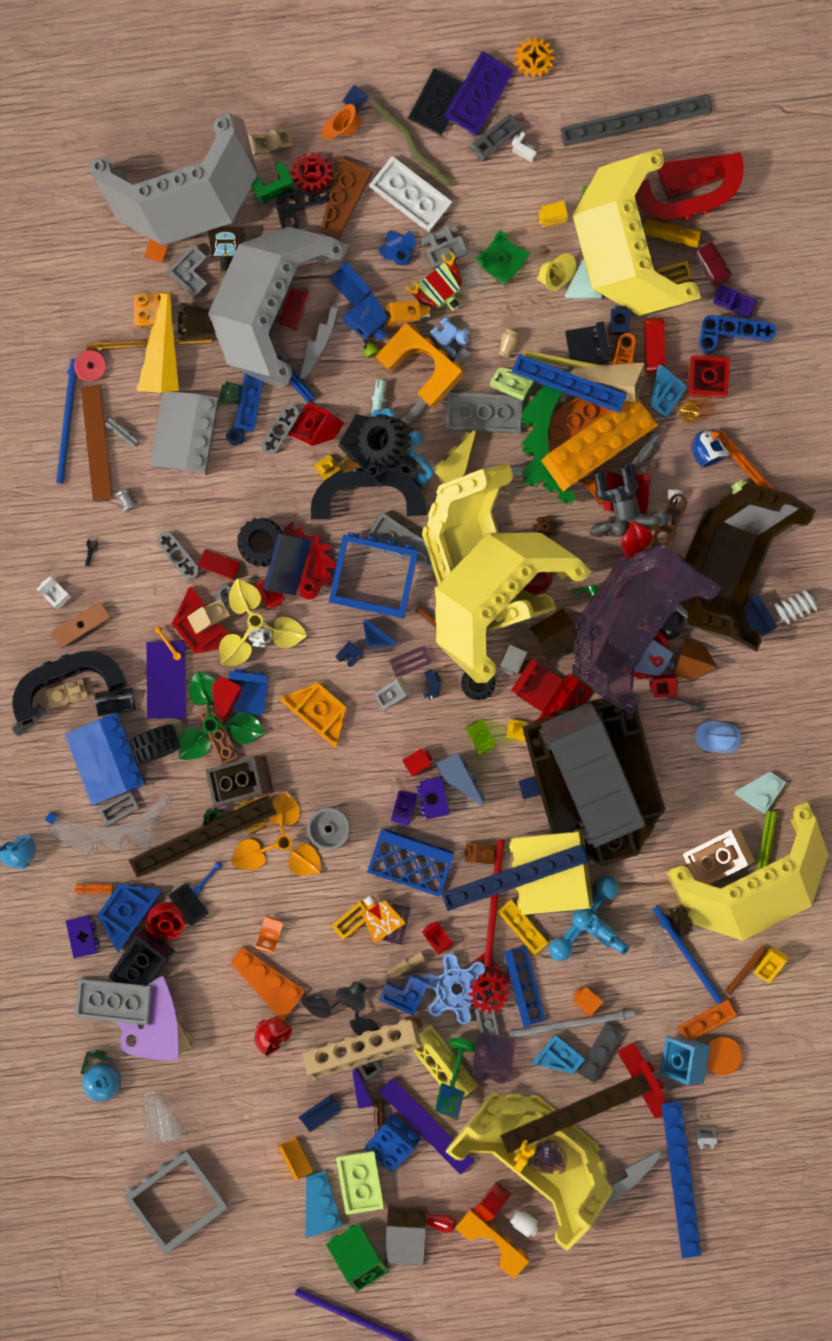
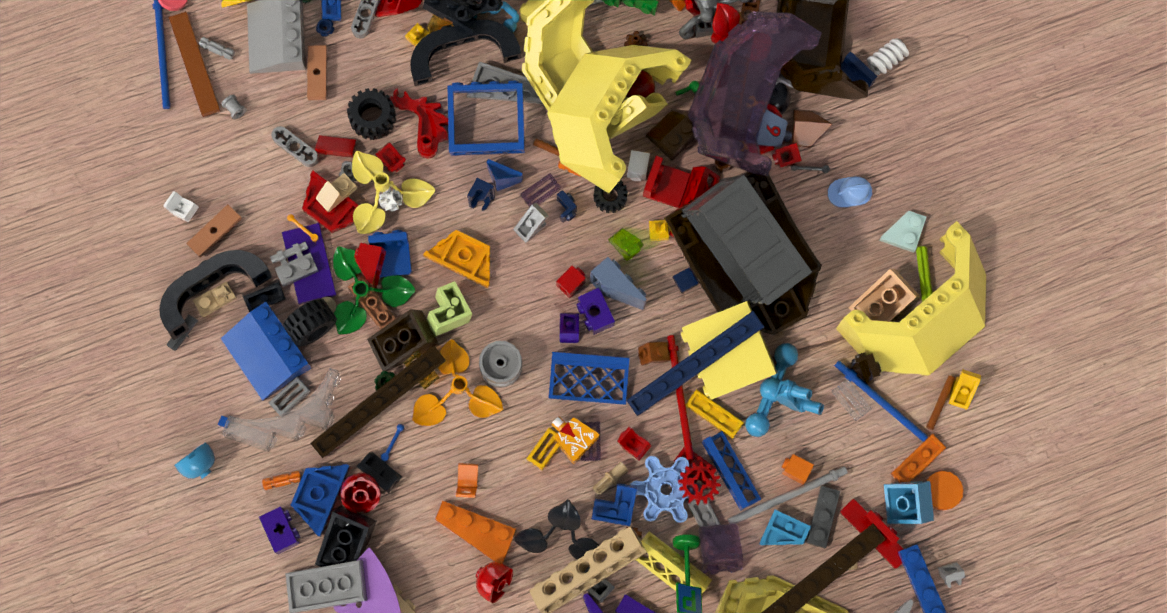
camera: 20 degrees left, 10 degrees down
(90, 552) = (209, 160): black hand -> none
(152, 684) = (296, 269): none -> light grey plate
(220, 472) = (317, 63): none -> nougat tile
(287, 564) = (400, 126): dark blue tile -> none
(295, 765) = (452, 310): none -> yellowish green brick

